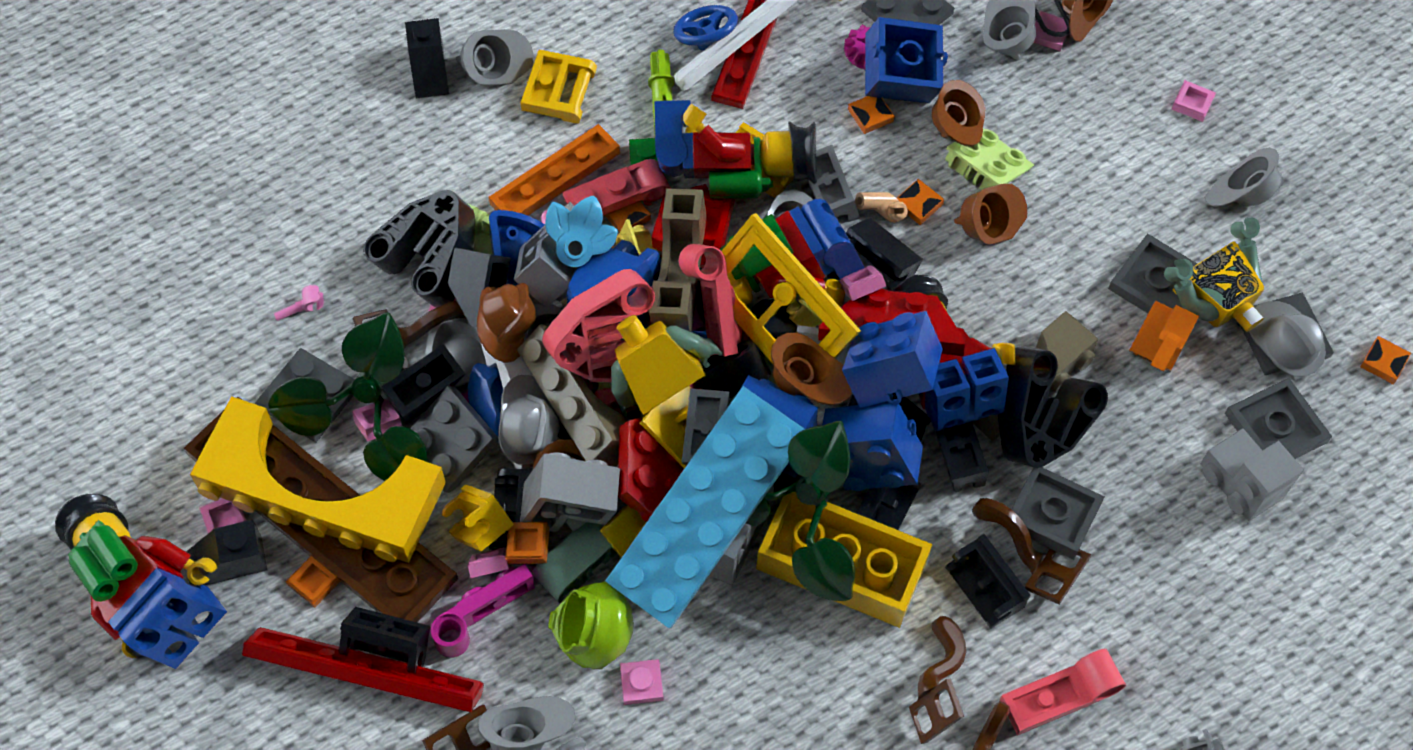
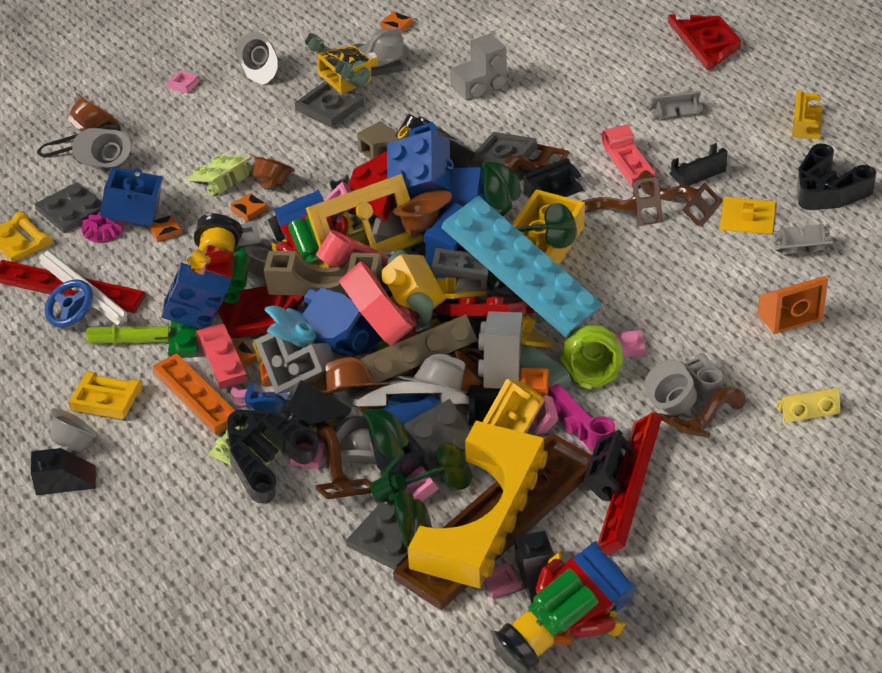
camera: 85 degrees left, 20 degrees down
(310, 295) = (297, 538): bright pink hand -> none
(312, 581) = (555, 522): orange tile -> none
(883, 203) = (256, 216): light nougat arm -> none
(959, 113) = (181, 181): dark orange piece -> none
(1163, 335) = (378, 96): orange piece -> none
(1280, 415) = (436, 62): dark grey plate -> none

